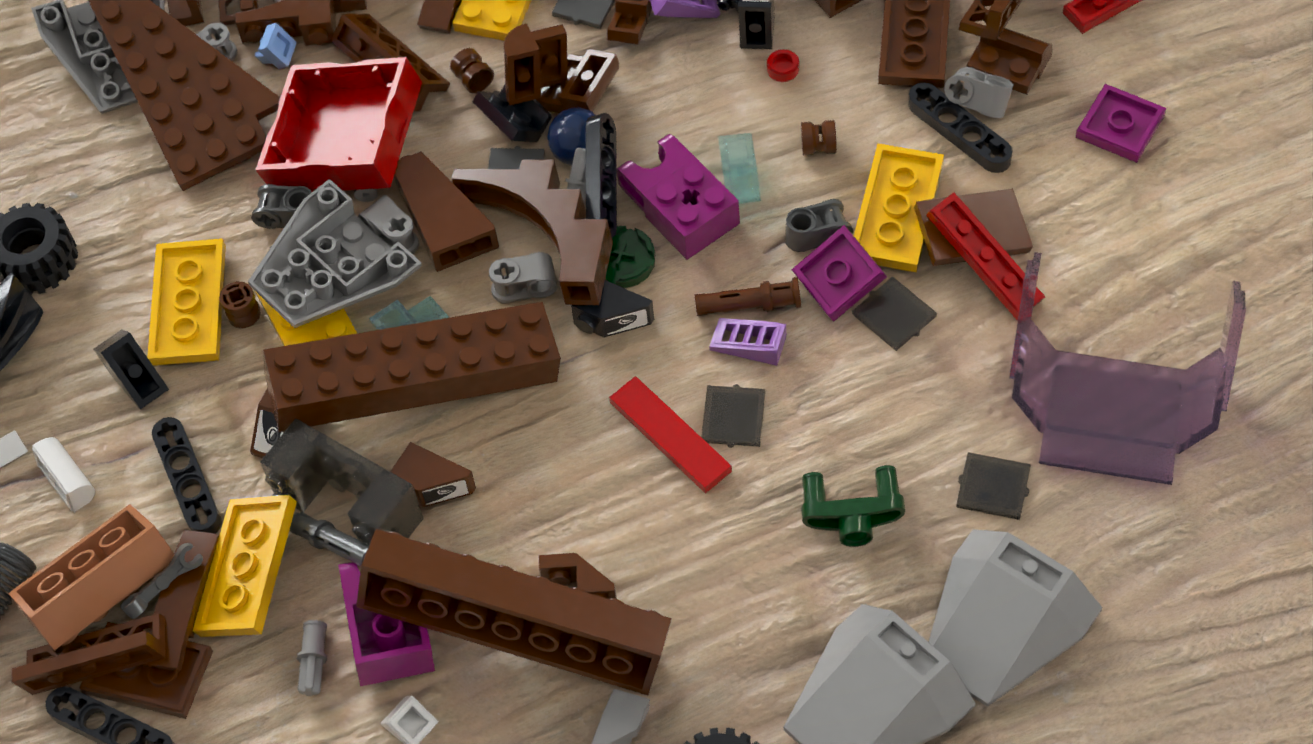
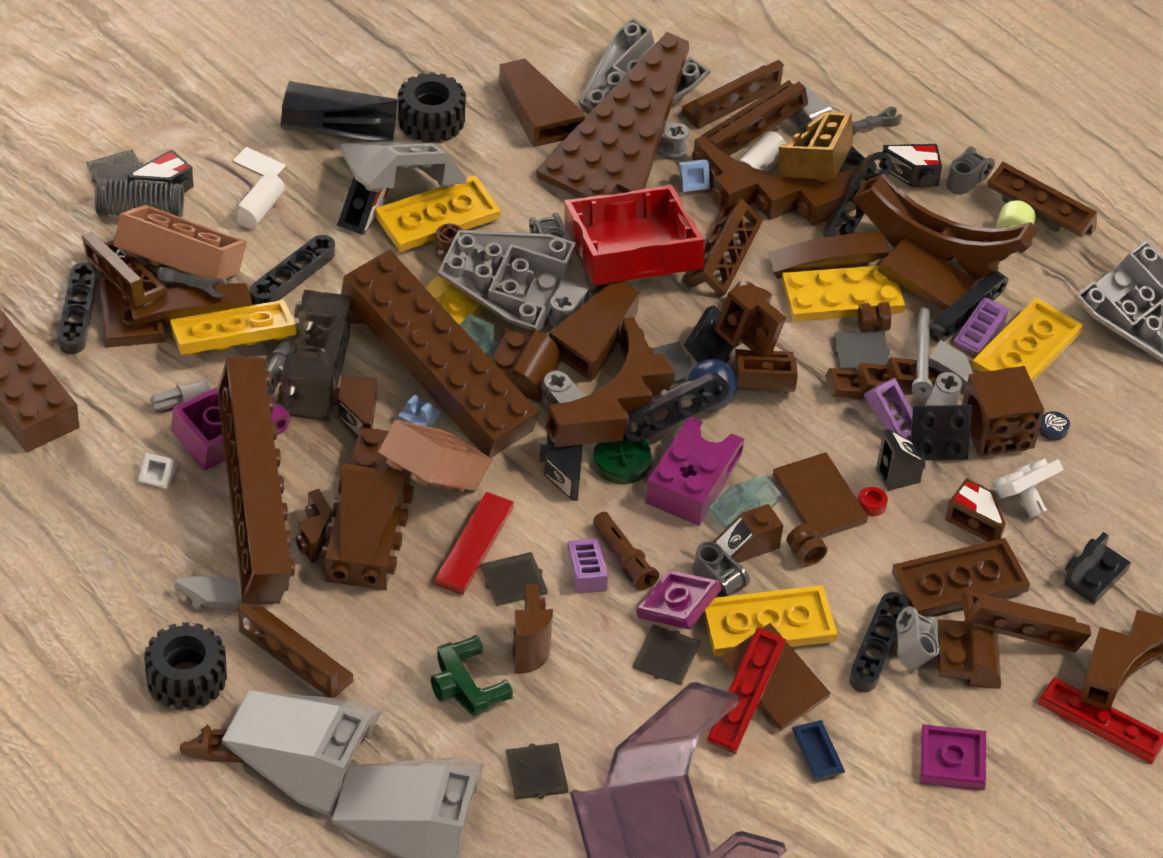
camera: 55 degrees right, 10 degrees down
(85, 147) = (538, 104): none -> reddish brown slope
(104, 310) = (376, 162): none -> light grey wedge
(449, 291) = (527, 361): none -> reddish brown brick
(467, 425) = (419, 412): none -> light blue tile
(573, 417) = (434, 456): none -> nougat brick
(584, 512) = (367, 517): none -> reddish brown wedge
(740, 663) = (293, 650): none -> reddish brown fence
(755, 105) = (820, 495): none -> reddish brown tile
(784, 179) = (752, 534): none -> reddish brown slope
(829, 415) = (532, 632): none -> reddish brown brick
(1071, 228) = (818, 750): none -> dark blue tile

